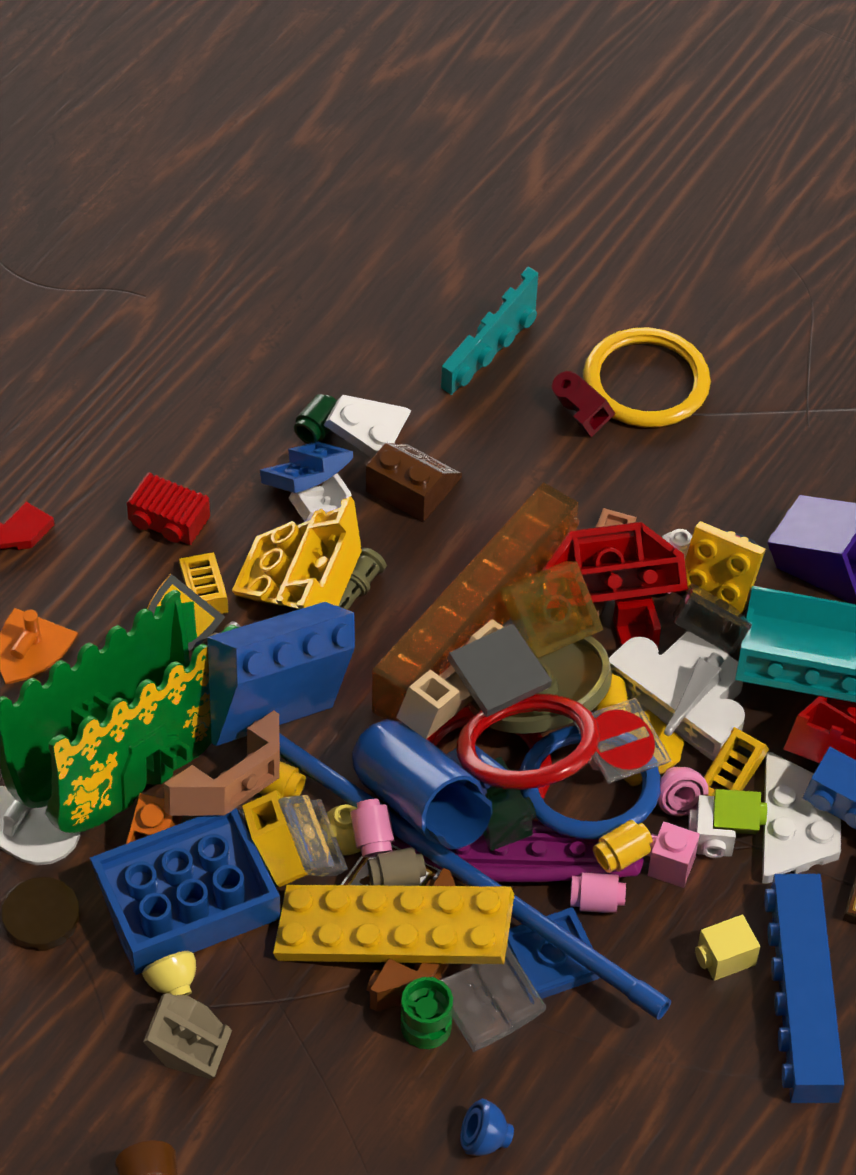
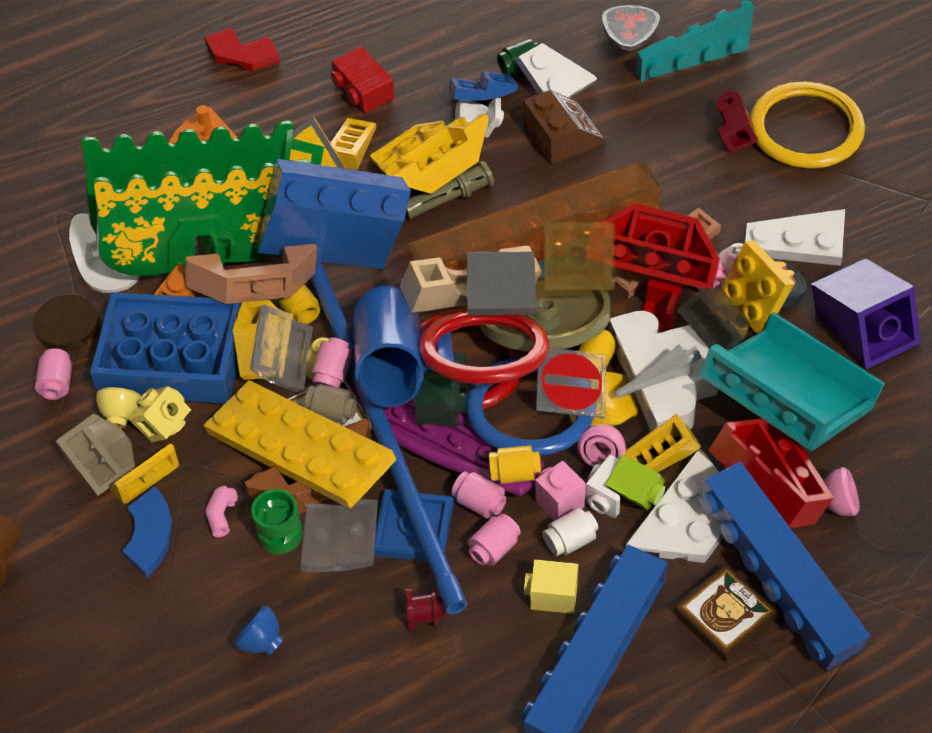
camera: 35 degrees right, 0 degrees up
(75, 974) = (53, 374): none -> bright pink brick
(225, 962) = (160, 413): none -> light yellow brick
(248, 1030) = (145, 475): none -> yellow slope
(298, 1084) = (151, 532): none -> blue tile
(348, 1030) = (215, 509): none -> bright pink arm
(409, 339) = (630, 25): none -> shield
(623, 1027) = (424, 608): none -> dark red brick
(642, 930) = (493, 540): none -> bright pink brick
(707, 888) = (570, 532): none -> white brick
(717, 498) = (802, 237): none -> white wing

